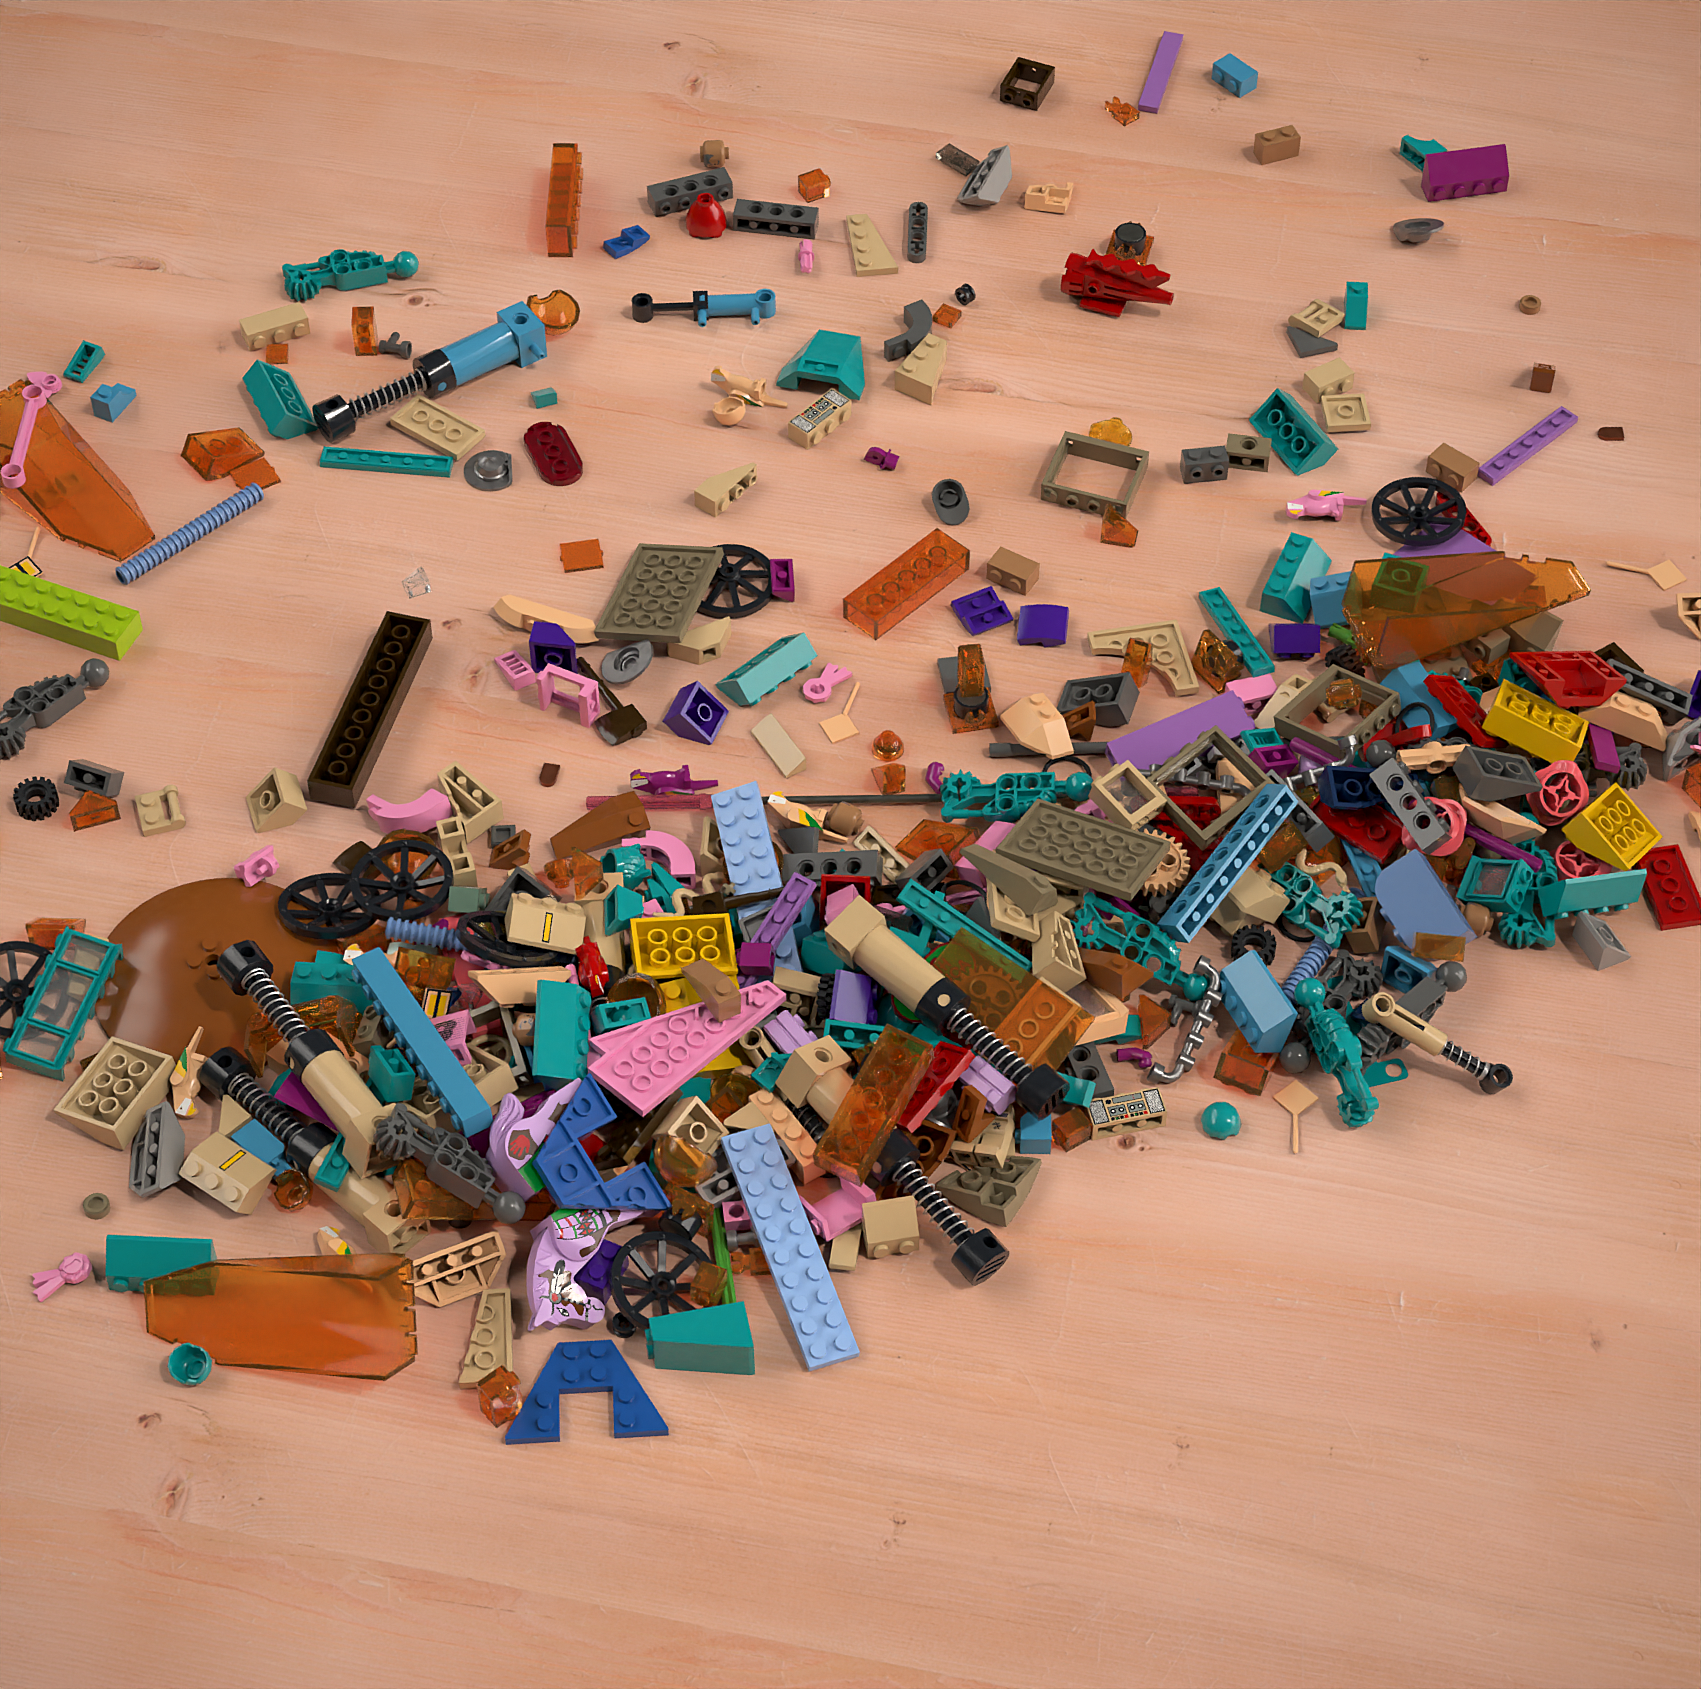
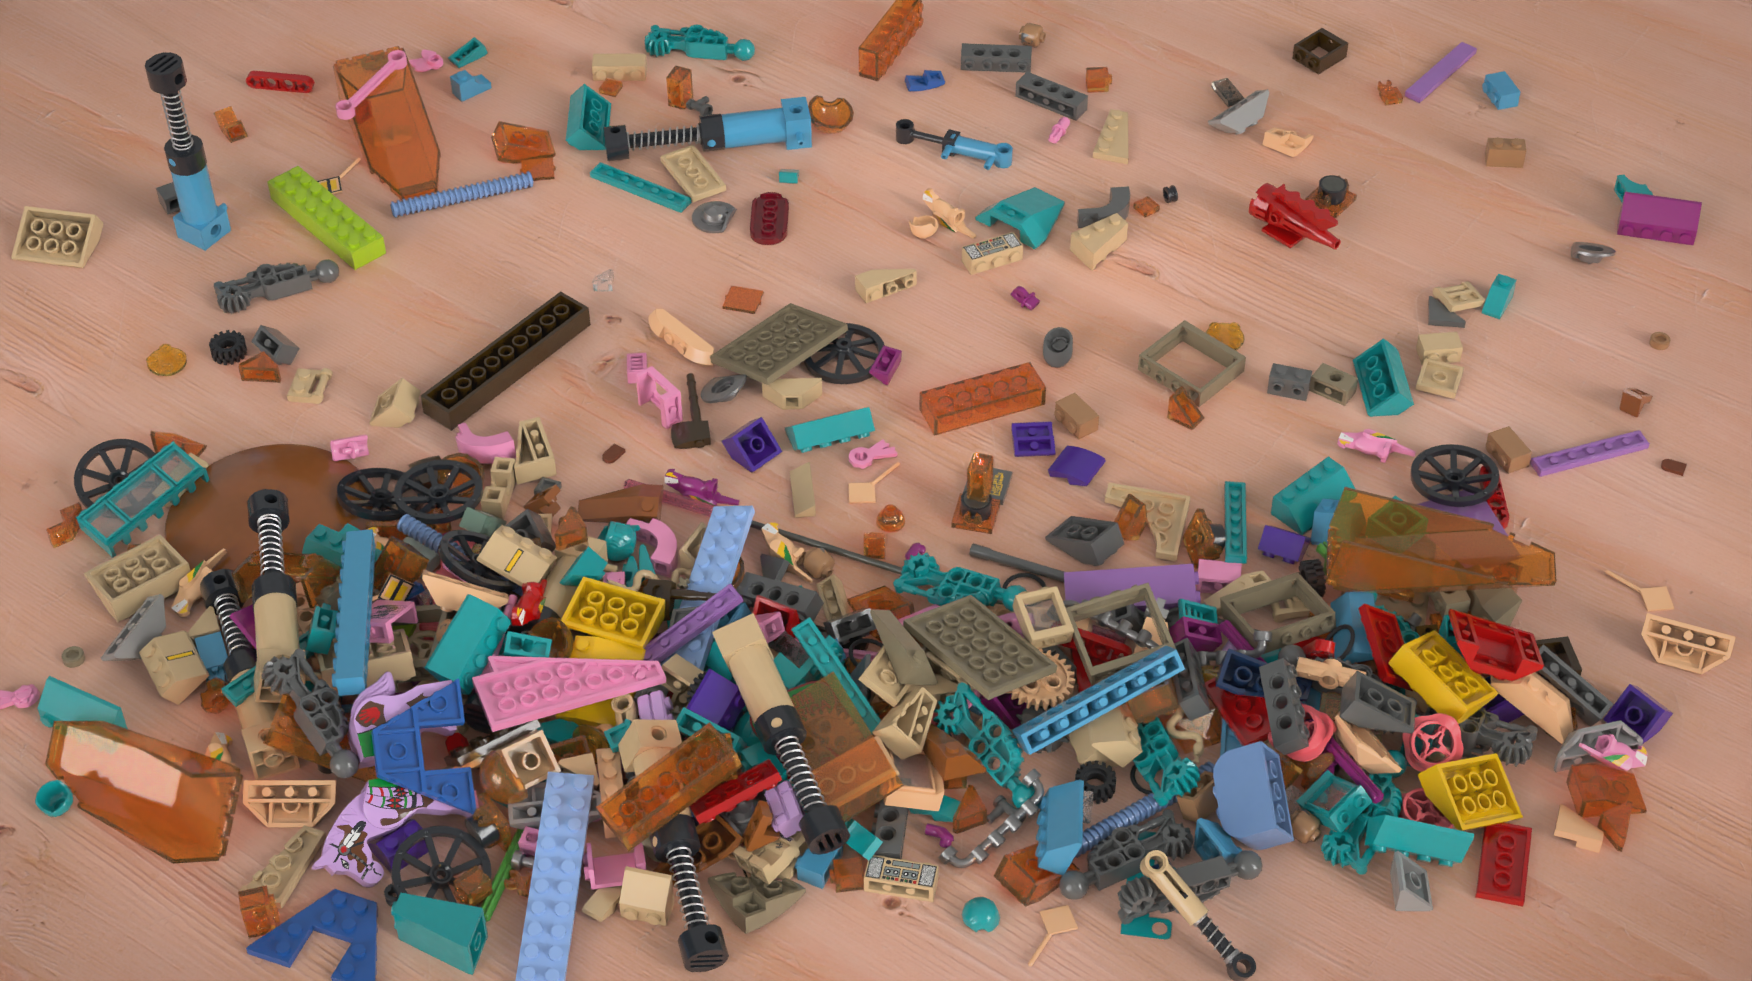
camera: 25 degrees right, 5 degrees down
(553, 646) = (666, 358): dark purple slope -> none
(706, 217) = (996, 79): red piece -> none
(714, 989) = (607, 652): medium nougat slope -> none
(756, 958) = (663, 642): magenta brick -> none
(917, 232) = (1157, 136): dark grey beam -> none
(1038, 726) = (1017, 542): light nougat wedge -> none
(1081, 720) = (1055, 549): dark orange slope -> none
(1338, 1053) = (1105, 890): teal arm -> none
(1343, 693) = (1284, 596): clear orange head -> none
(1438, 946) = (1244, 834): clear orange slope -> none
(1603, 749) = (1498, 720): magenta tile -> none

